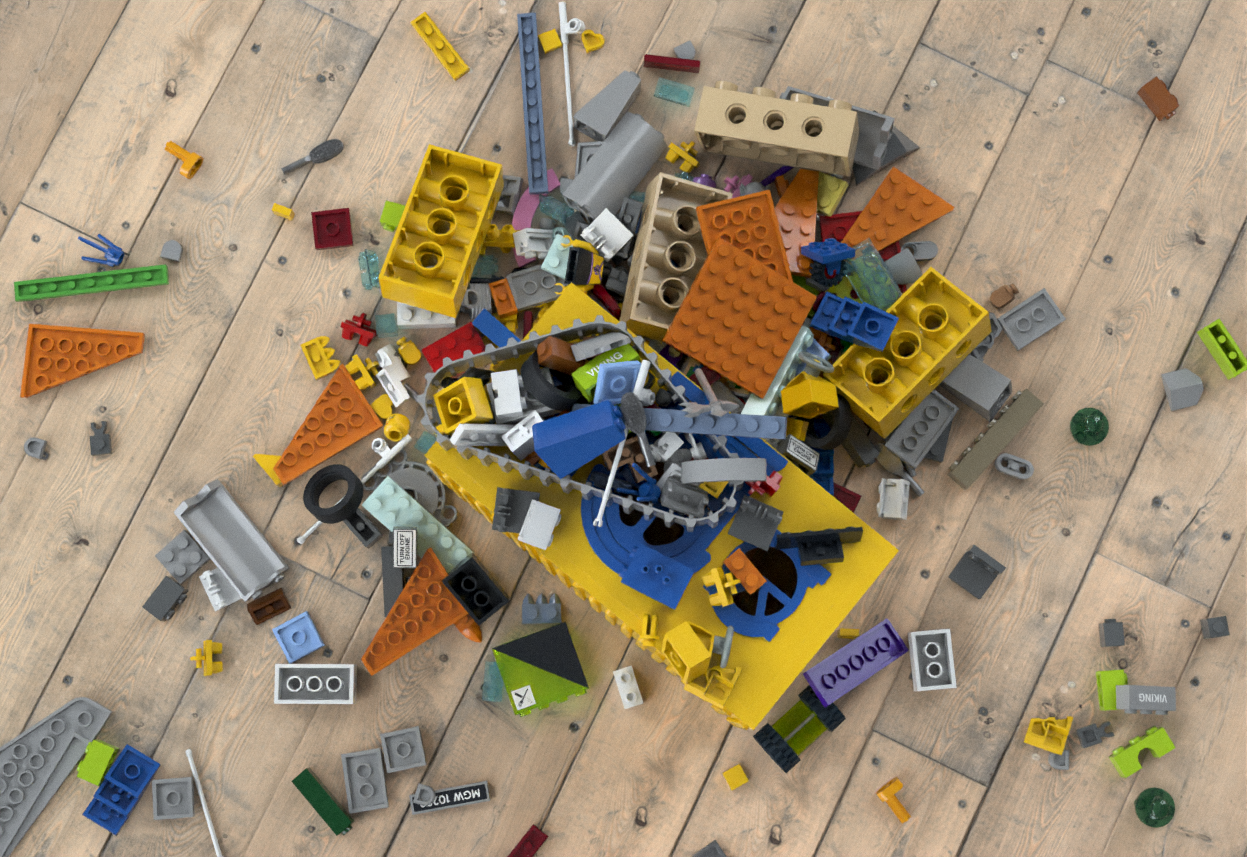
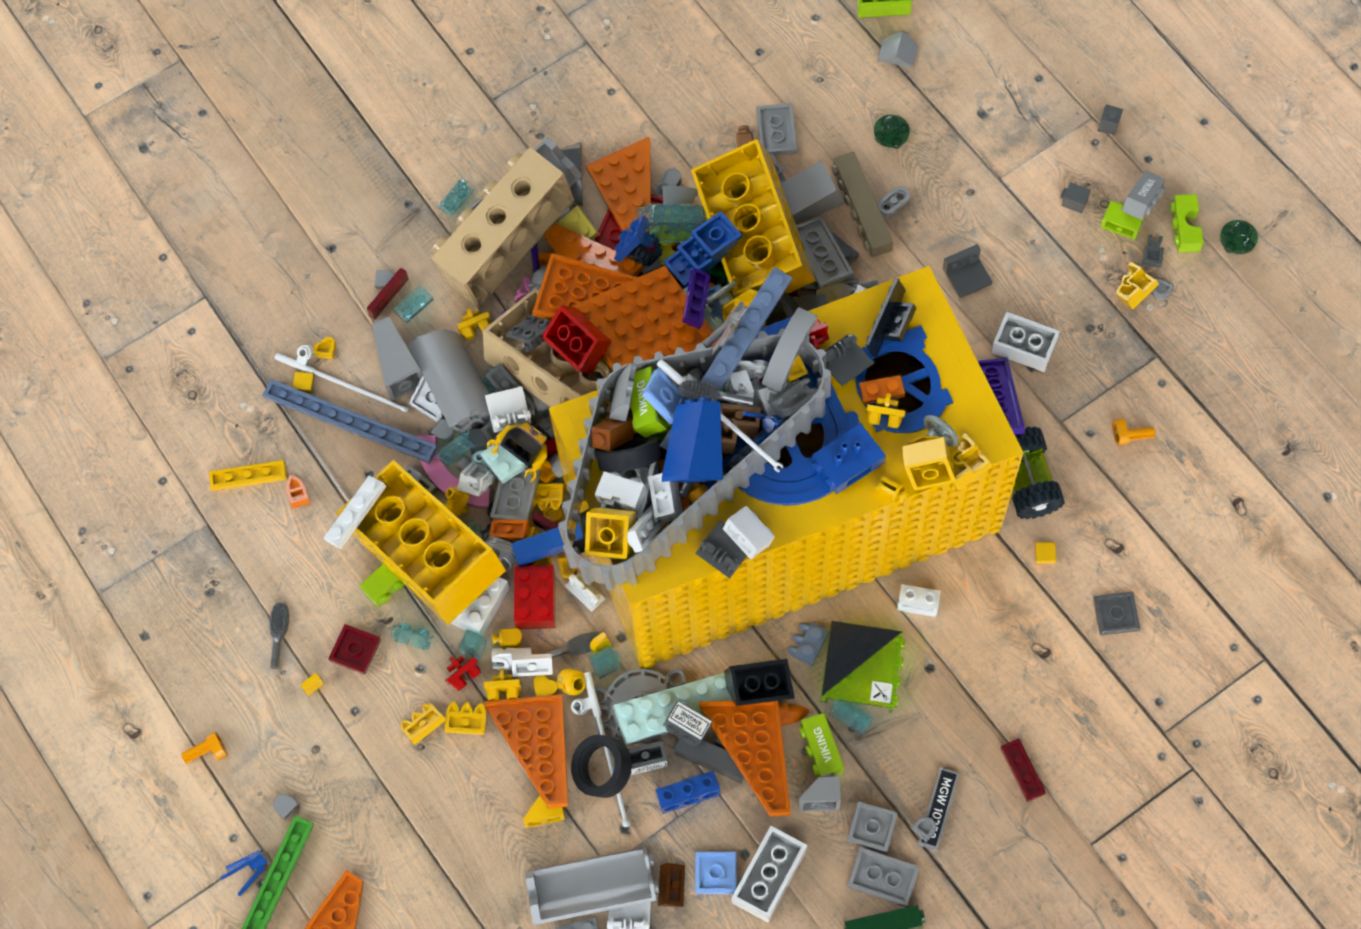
camera: 55 degrees left, 15 degrees down
(297, 323) = (422, 723): none -> yellow plate
(352, 578) = (688, 792): none -> blue brick
(405, 694) = (822, 795): none -> light grey slope
(435, 160) = (354, 512): none -> white plate
(445, 96) = (296, 492): none -> orange plate
(450, 670) = (821, 746): none -> lime brick
(680, 215) = (529, 332): none -> dark grey hinge
(688, 261) = (576, 339): none -> red brick
(796, 343) = (696, 298): none -> dark purple plate
(799, 67) = (455, 197): none -> clear light blue hinge

